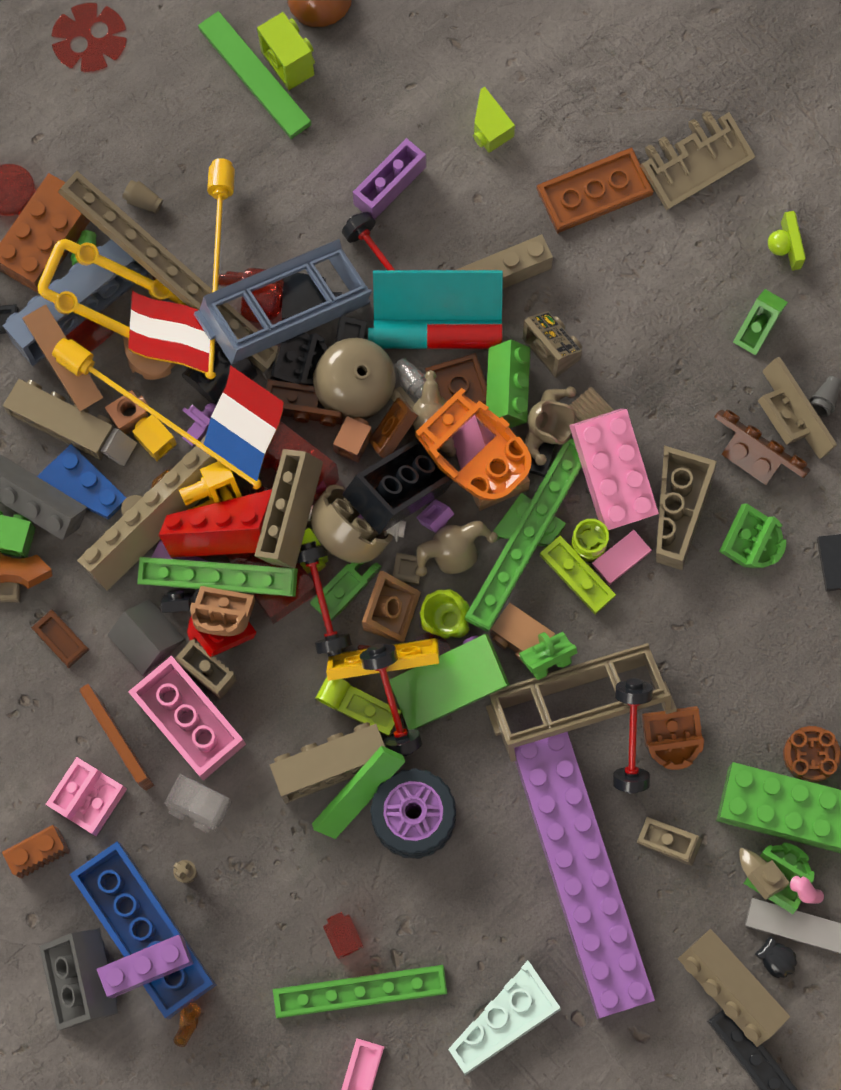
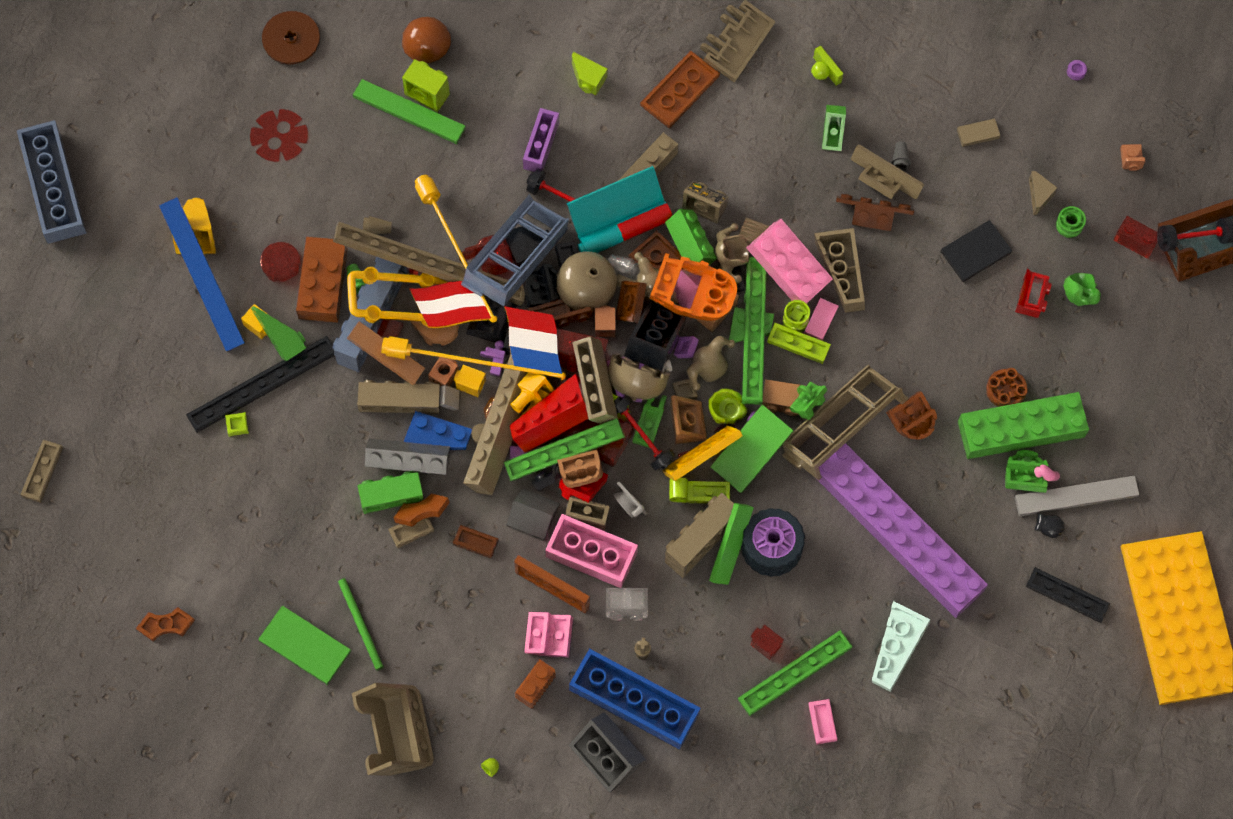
camera: 30 degrees left, 5 degrees down
(144, 966) = (652, 715): medium lavender brick -> none
(188, 1024) = (694, 745): clear orange arm -> none
(264, 678) = (629, 502): none -> light grey hat
(379, 658) = (703, 449): black axle -> none
(634, 693) = (901, 455): black axle -> none
(669, 841) = (944, 484): dark tan slope -> none
(734, 988) = (1032, 555): dark tan brick -> none
(754, 539) = (901, 269): bright green slope -> none
(763, 875) = (1016, 476): dark tan plate -> none

